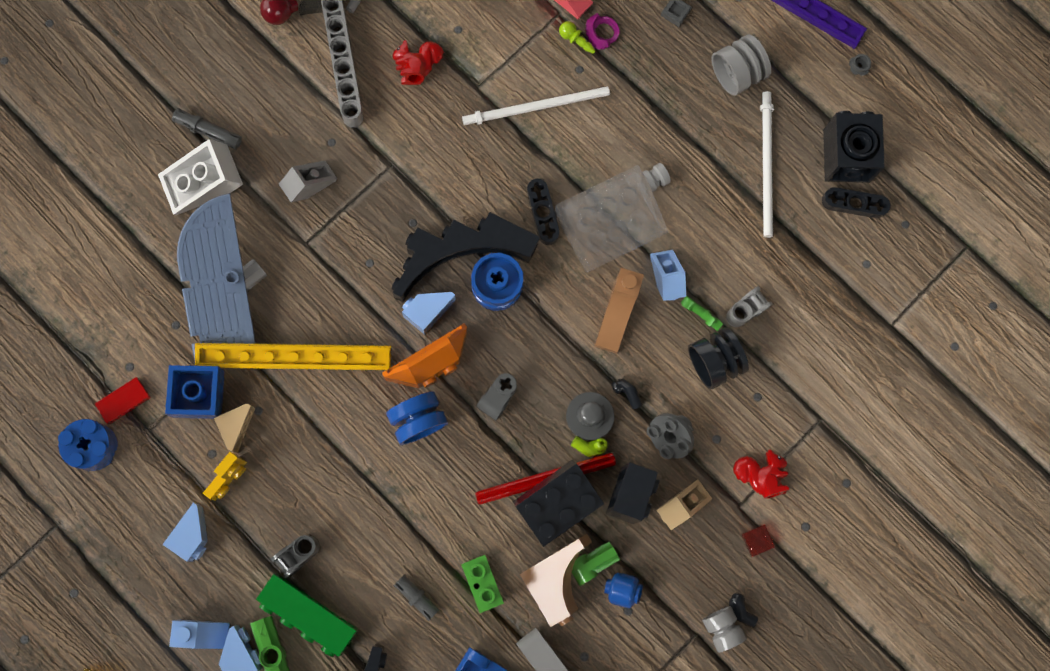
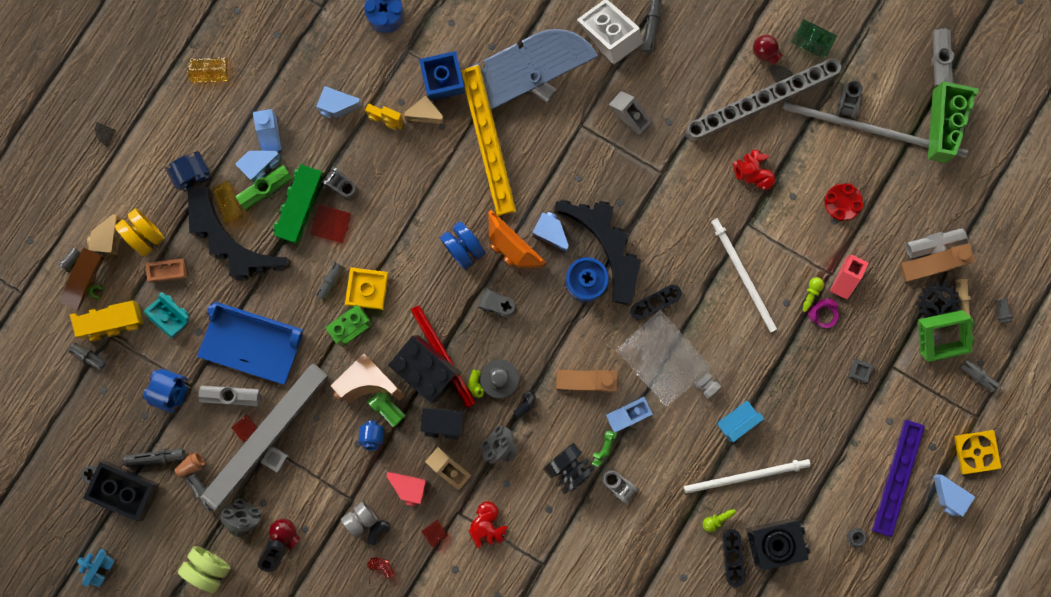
camera: 85 degrees right, 5 degrees up
(122, 400) = (424, 26): red tile -> none
(342, 580) = (330, 223): none -> clear red piece
(438, 553) = (366, 288): none -> yellow plate
(697, 558) = (408, 488): none -> coral slope
(704, 154) = (739, 421): none -> dark azure panel
(741, 64) = (827, 437): light grey wheel -> none
(783, 614) = (381, 564): none -> clear red arm
(812, 216) = (710, 524): none -> lime bar

